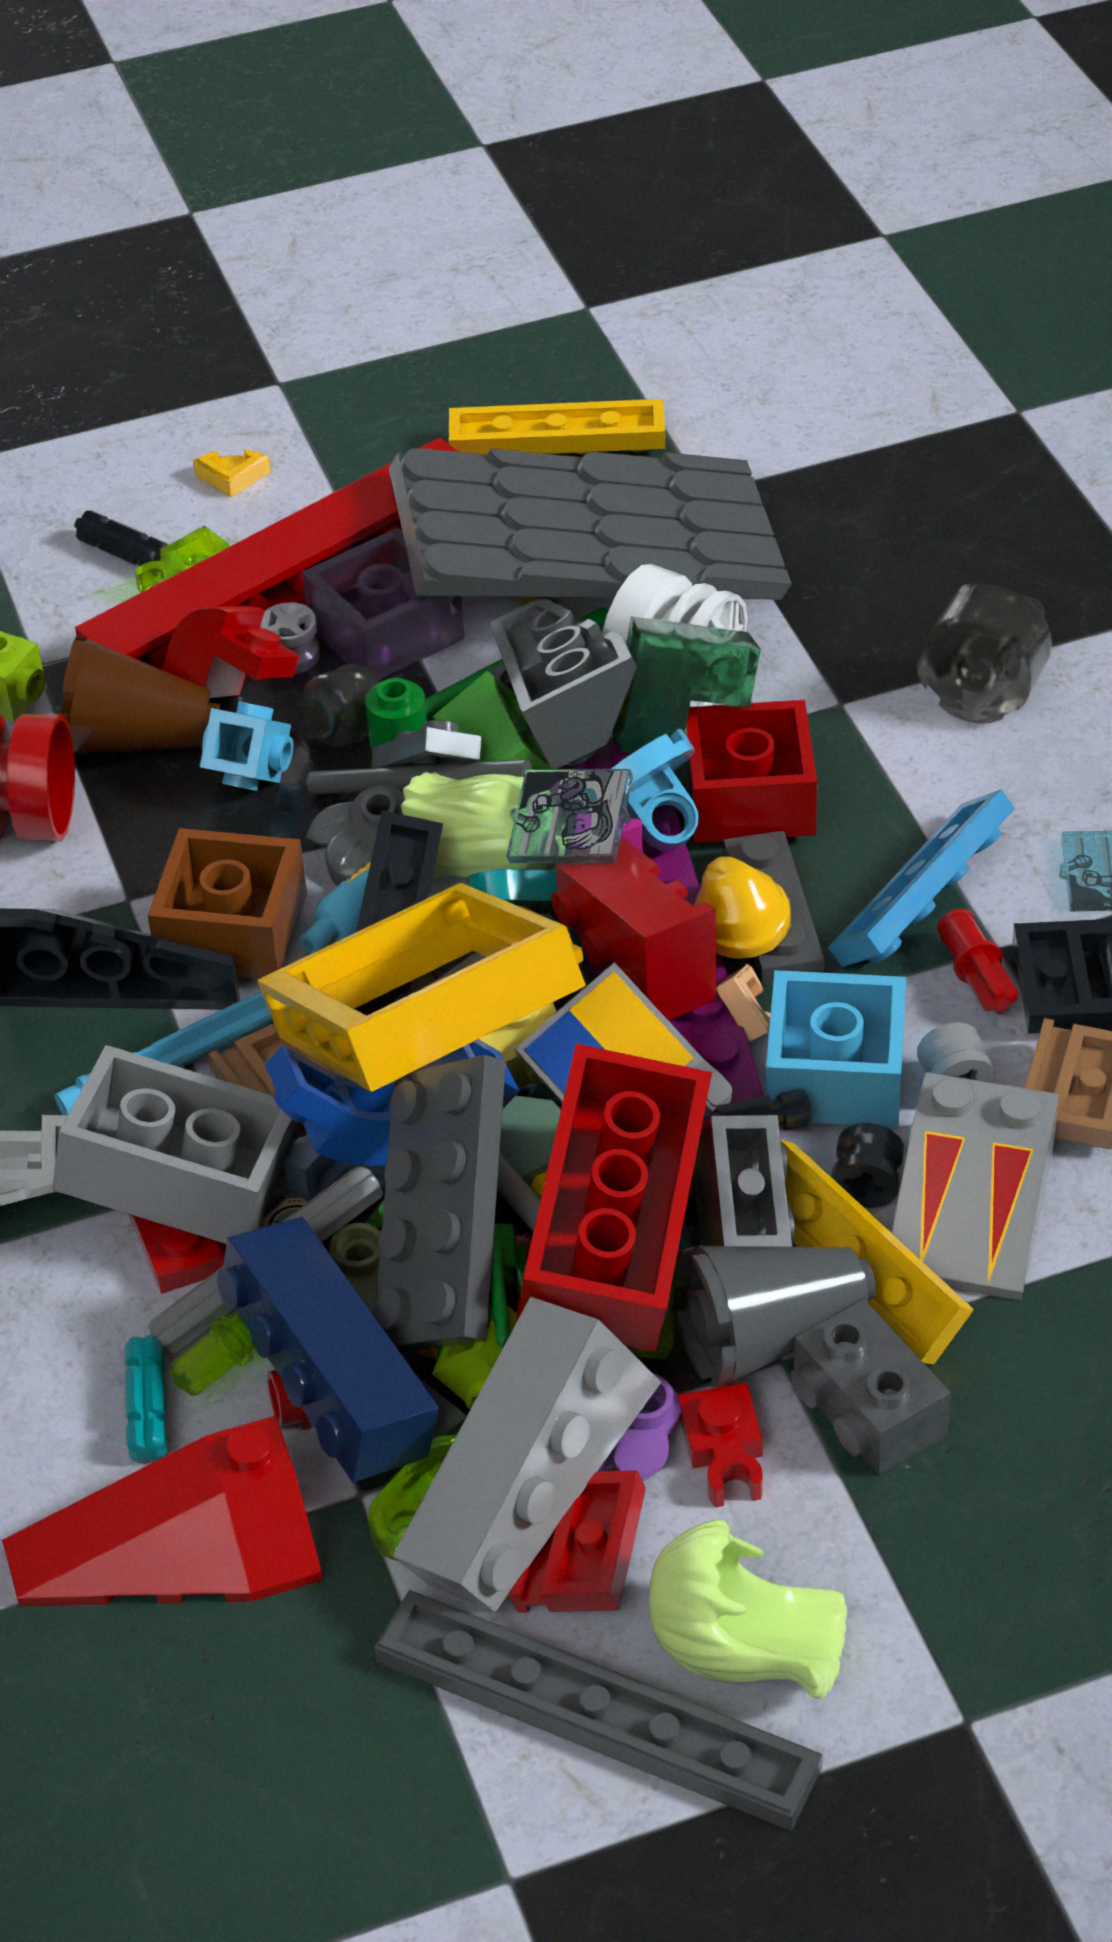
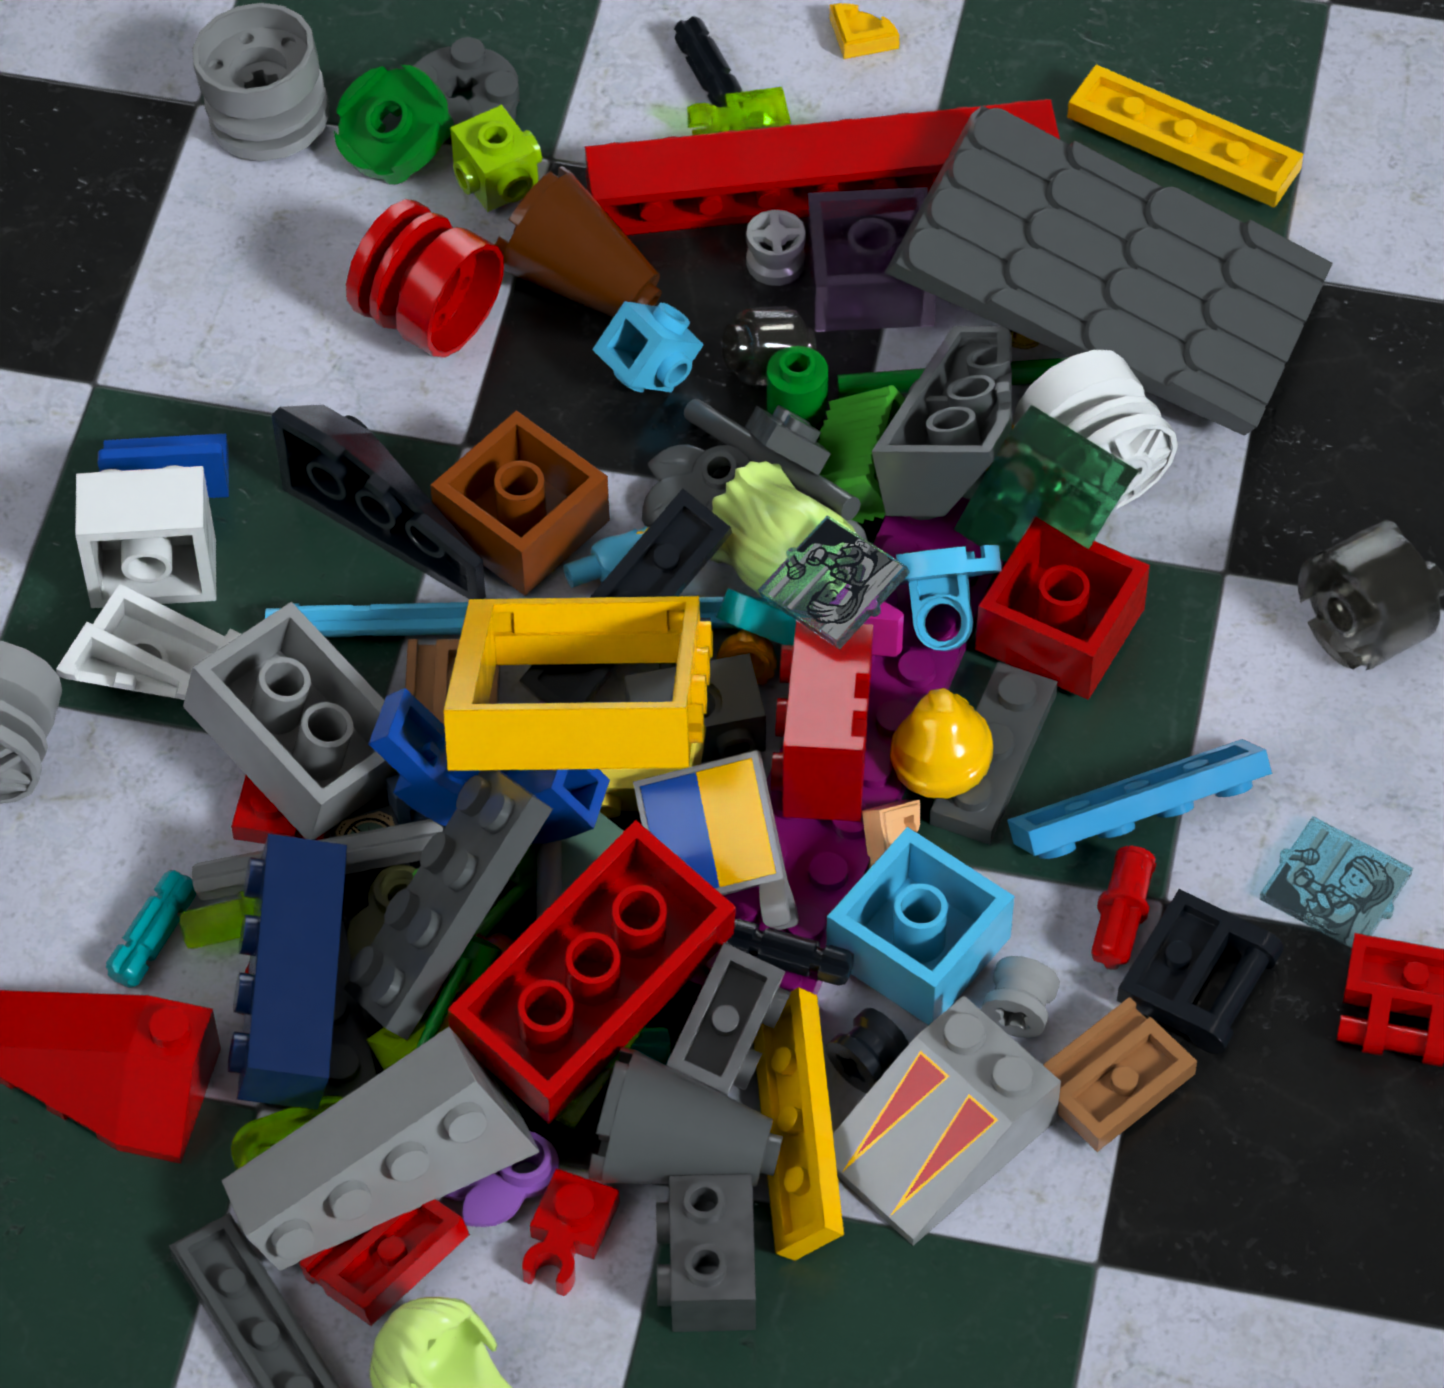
camera: 30 degrees right, 10 degrees up
(223, 645) = (697, 240): red brick -> none

